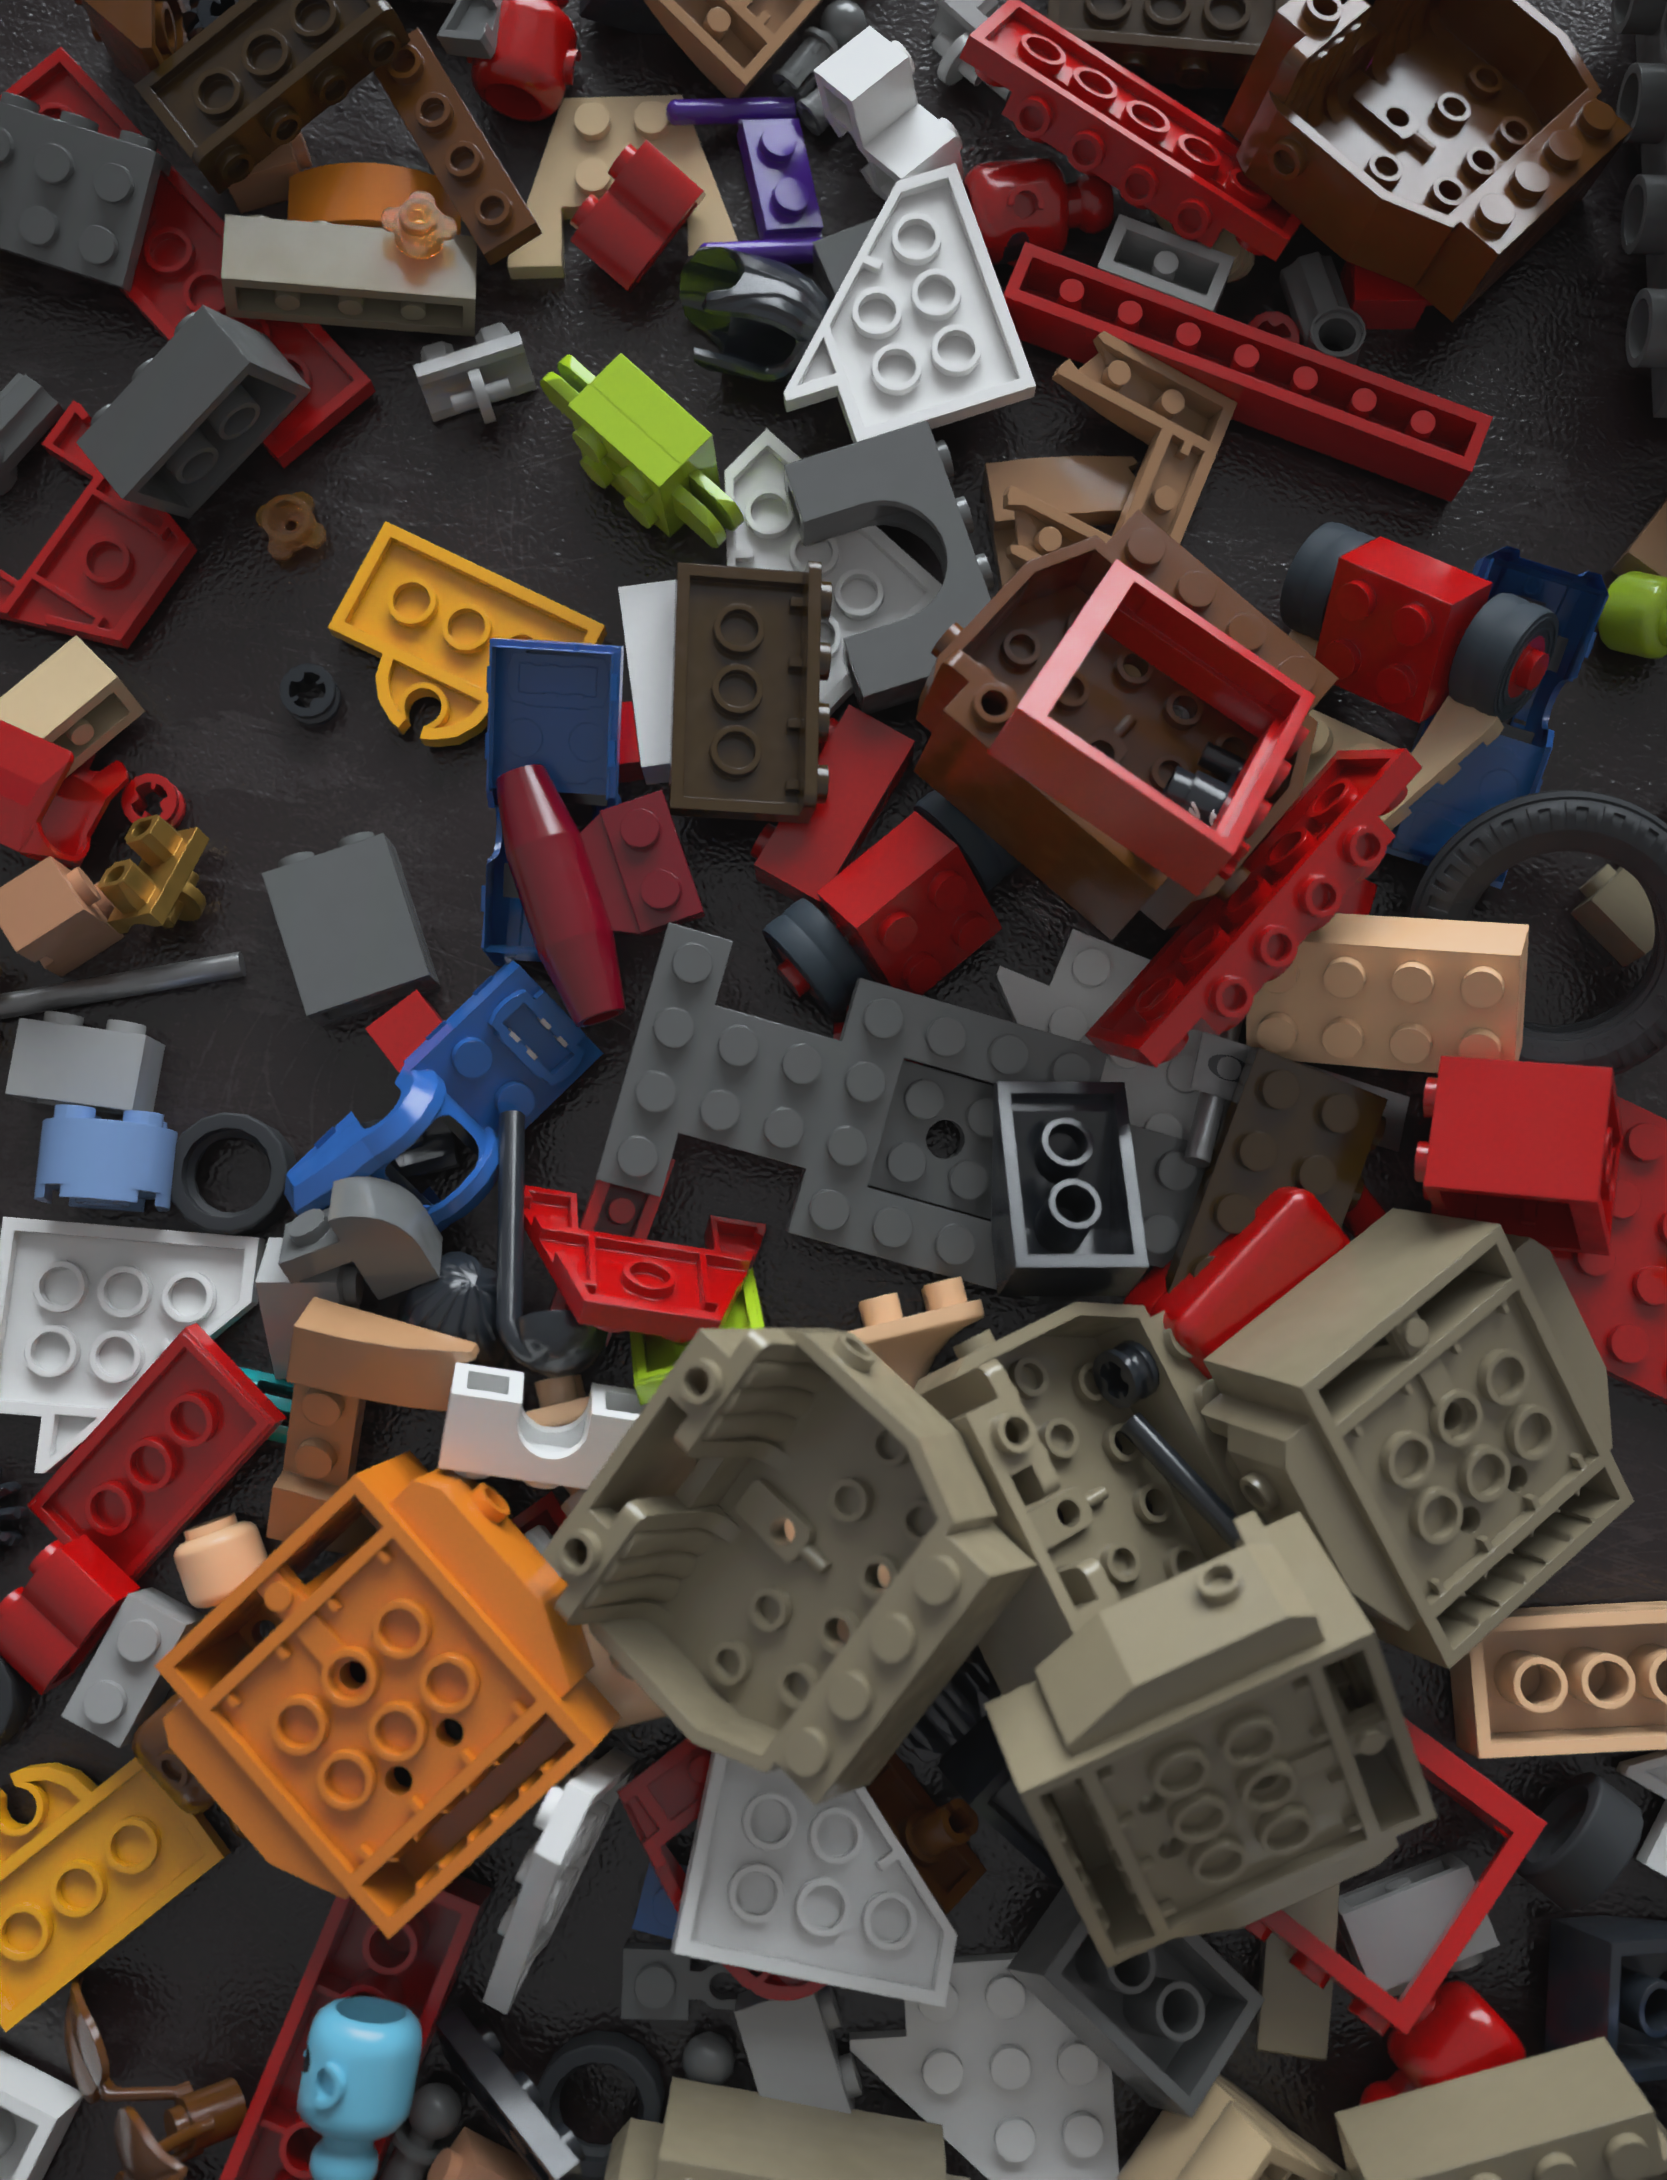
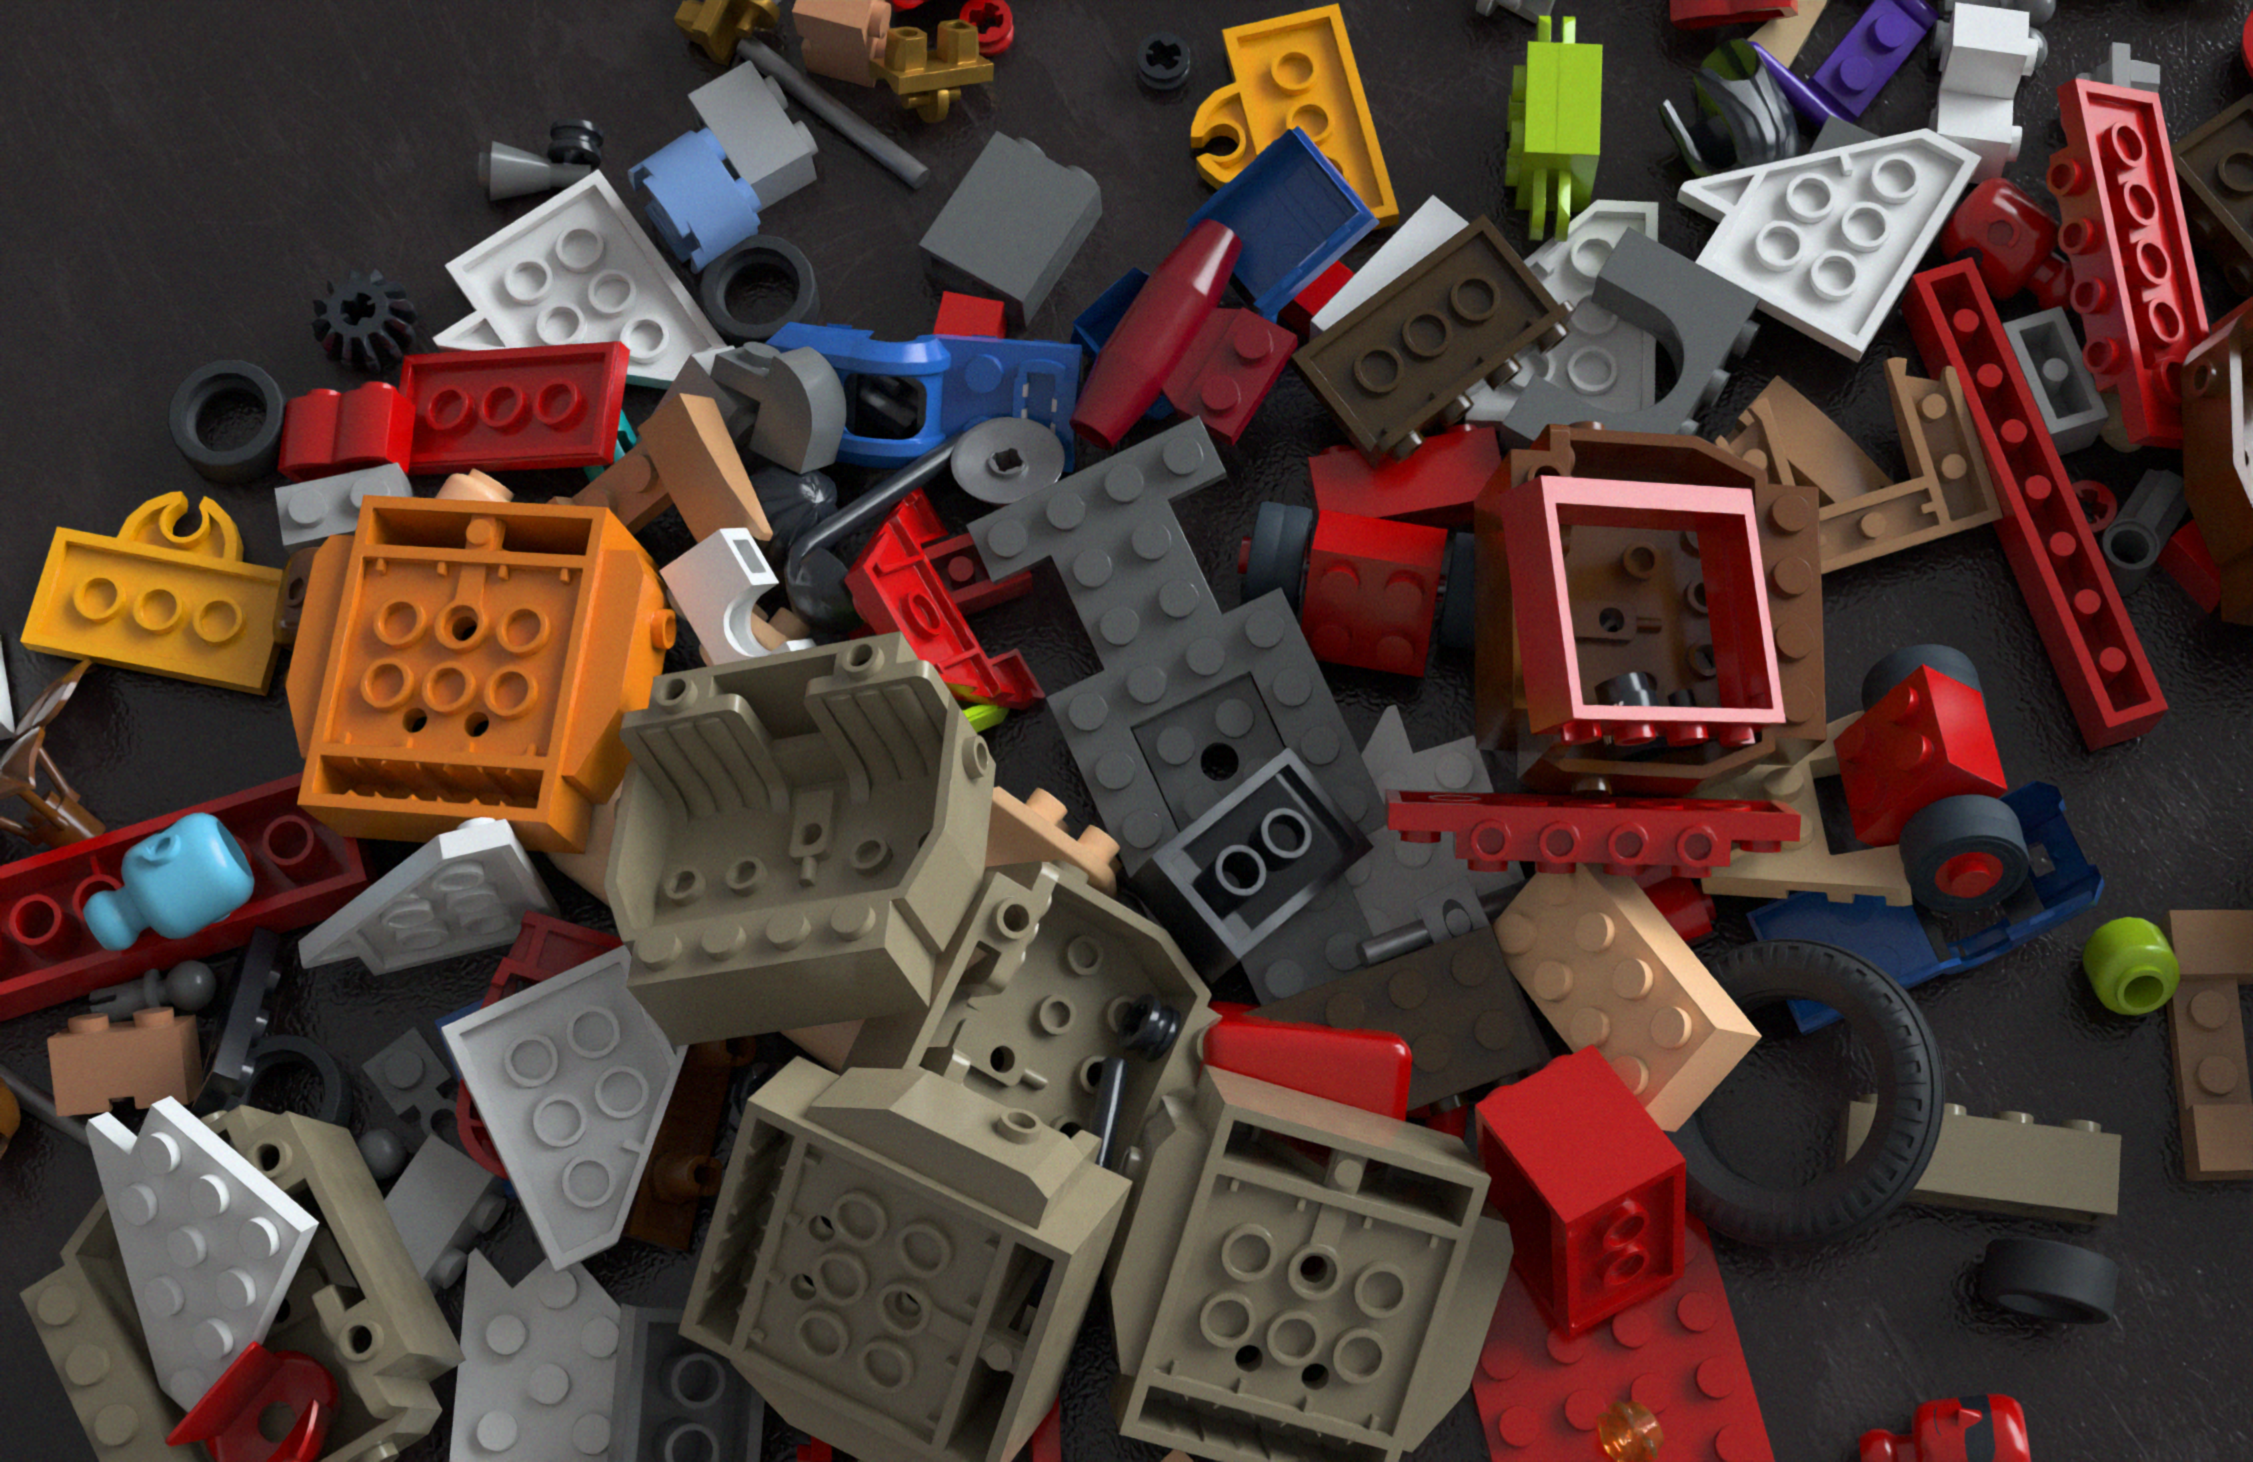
camera: 55 degrees right, 10 degrees down
(540, 1092) = (1014, 445): none -> flat silver piece

